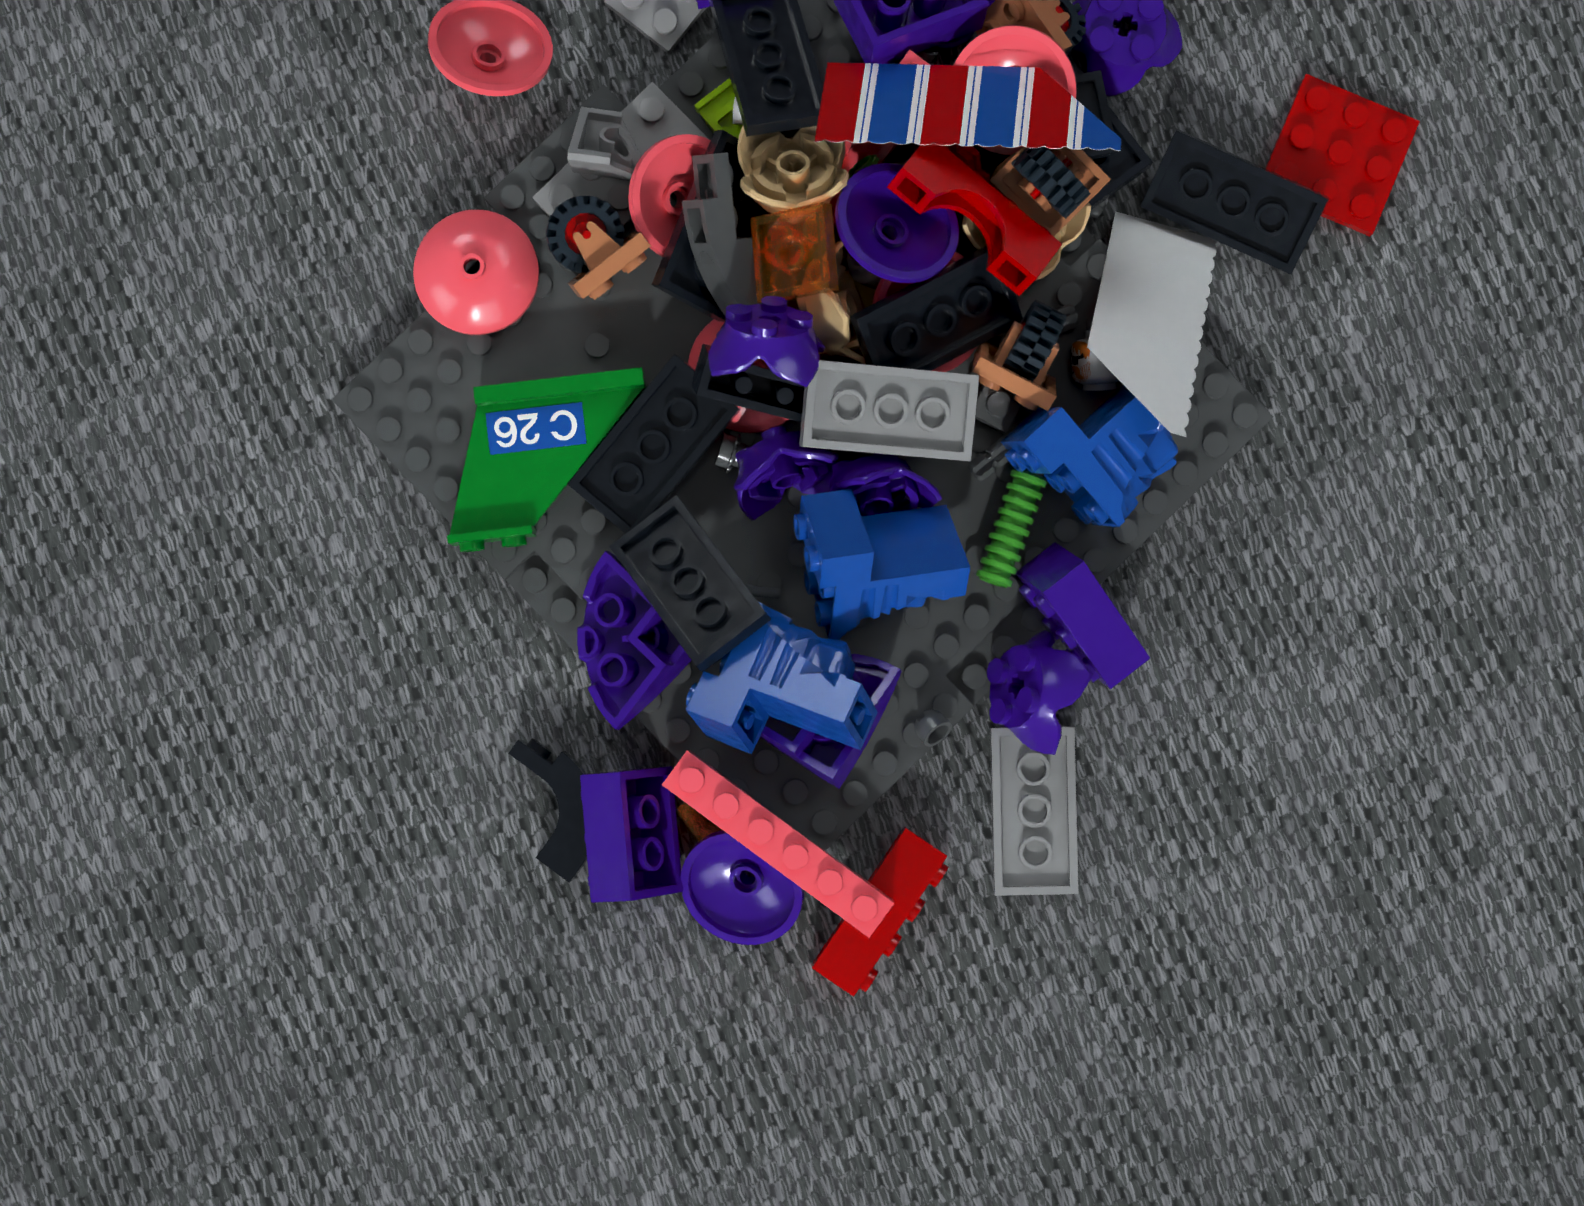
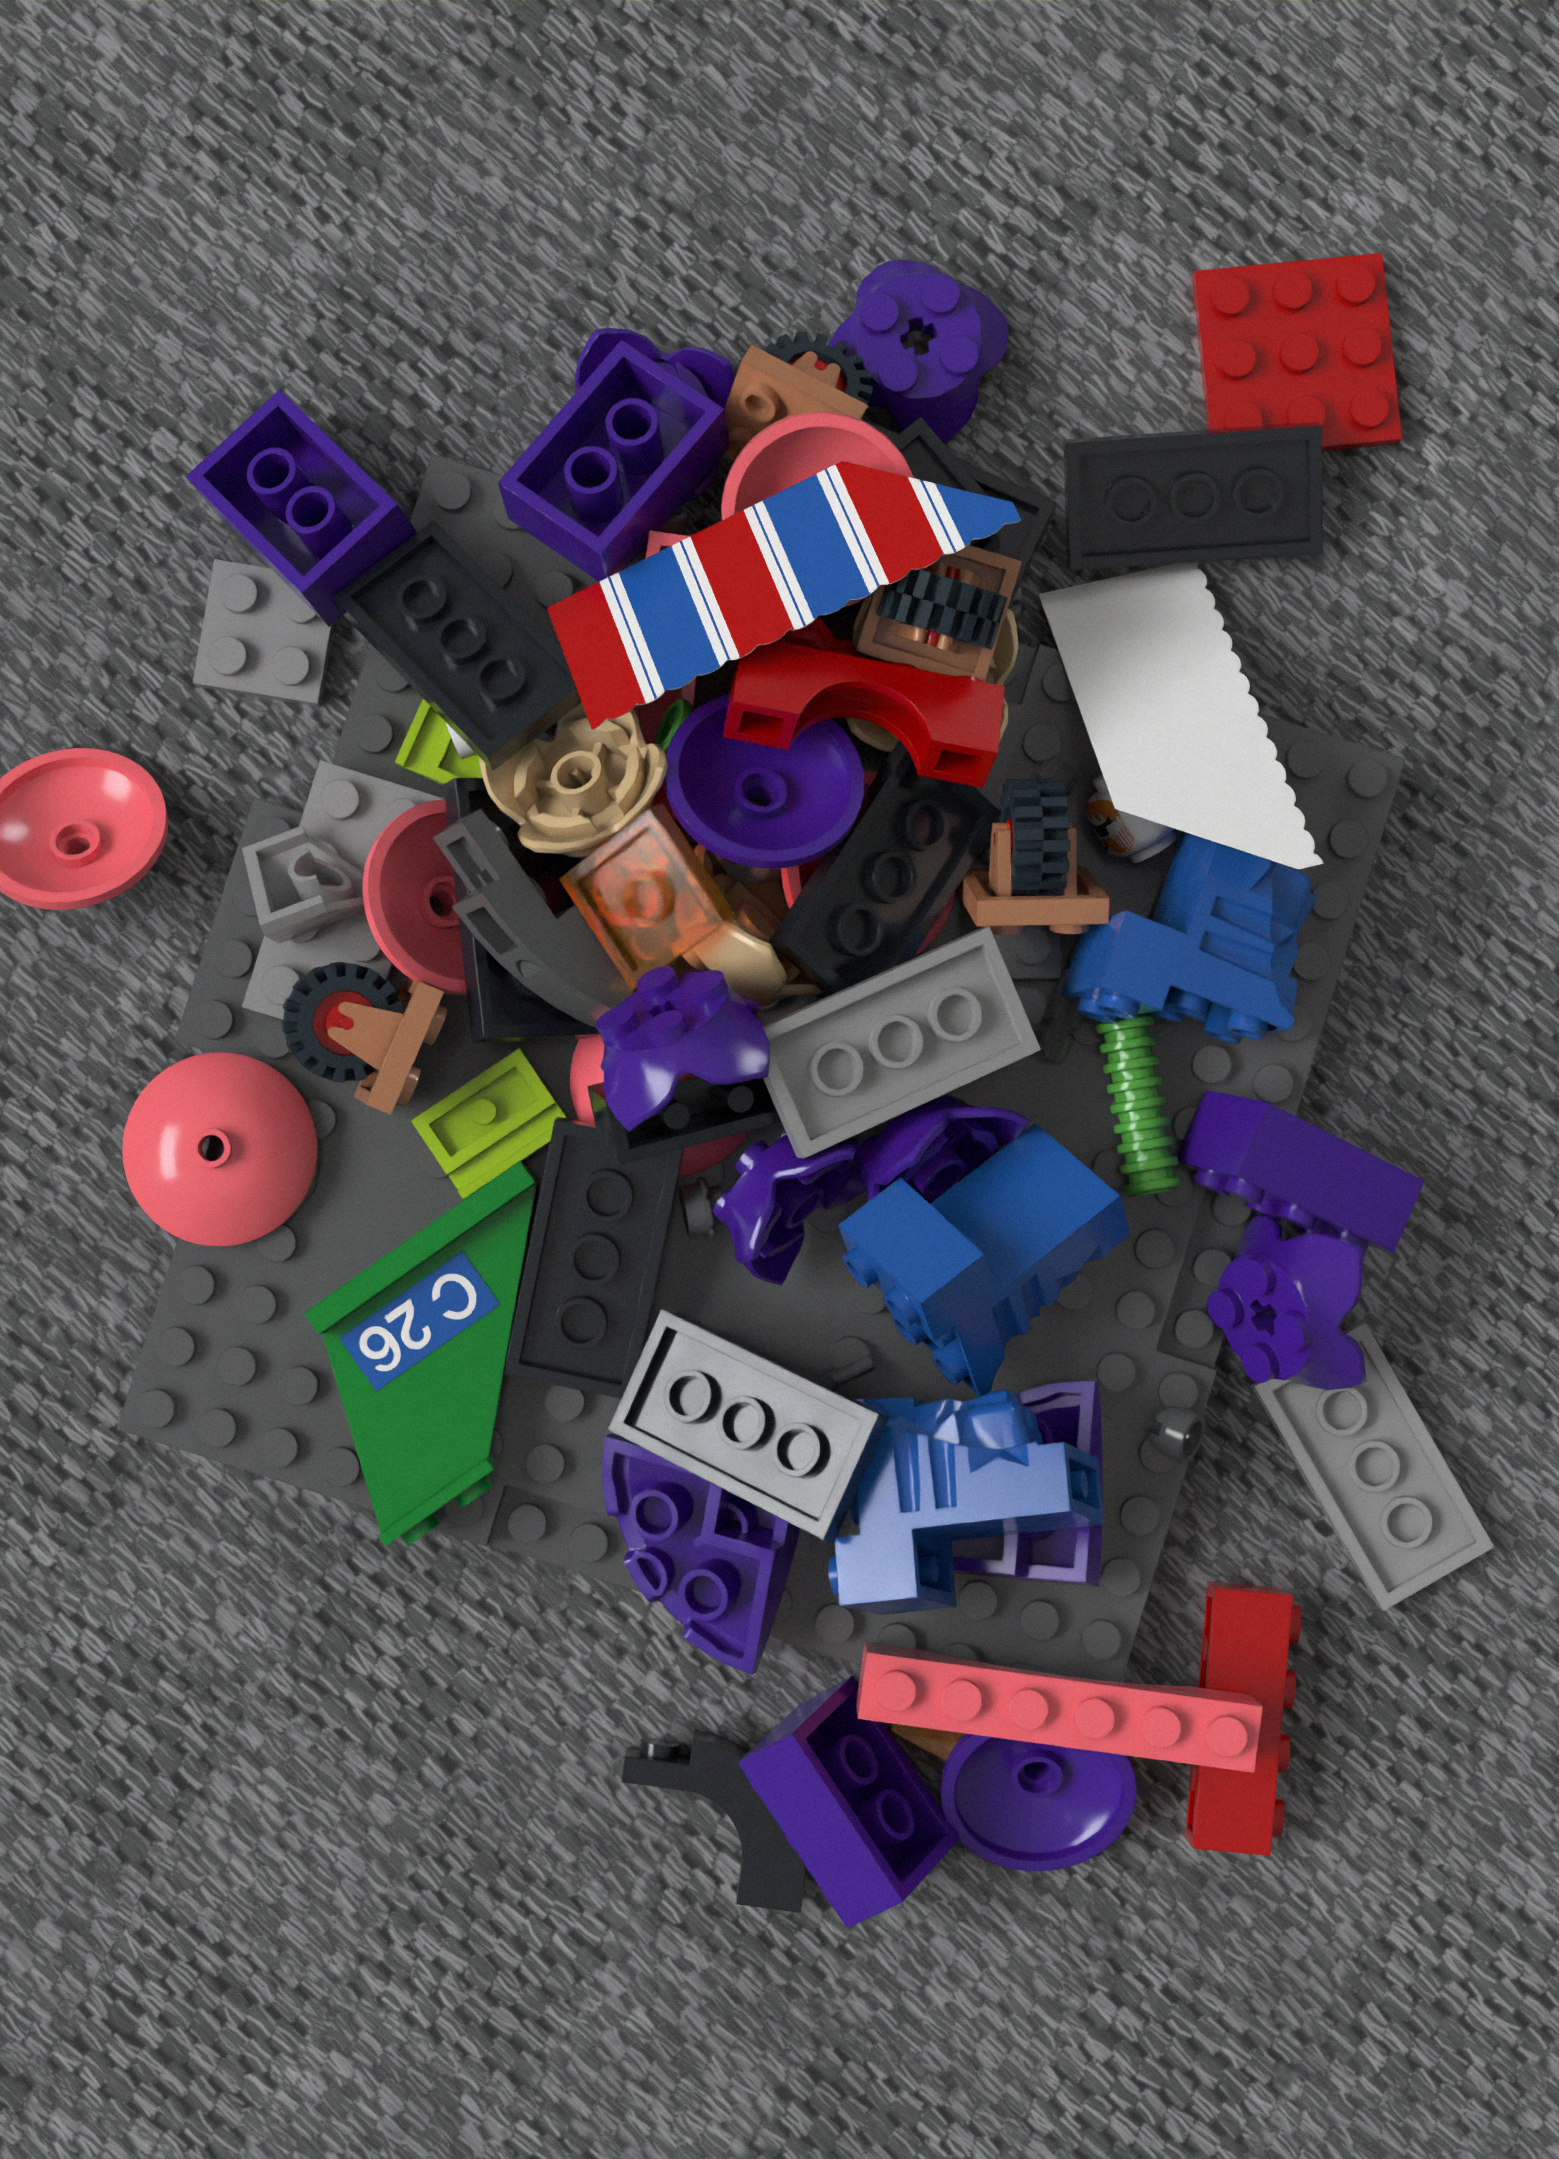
camera: 35 degrees left, 0 degrees up
(636, 338) = (490, 1123): none -> lime plate

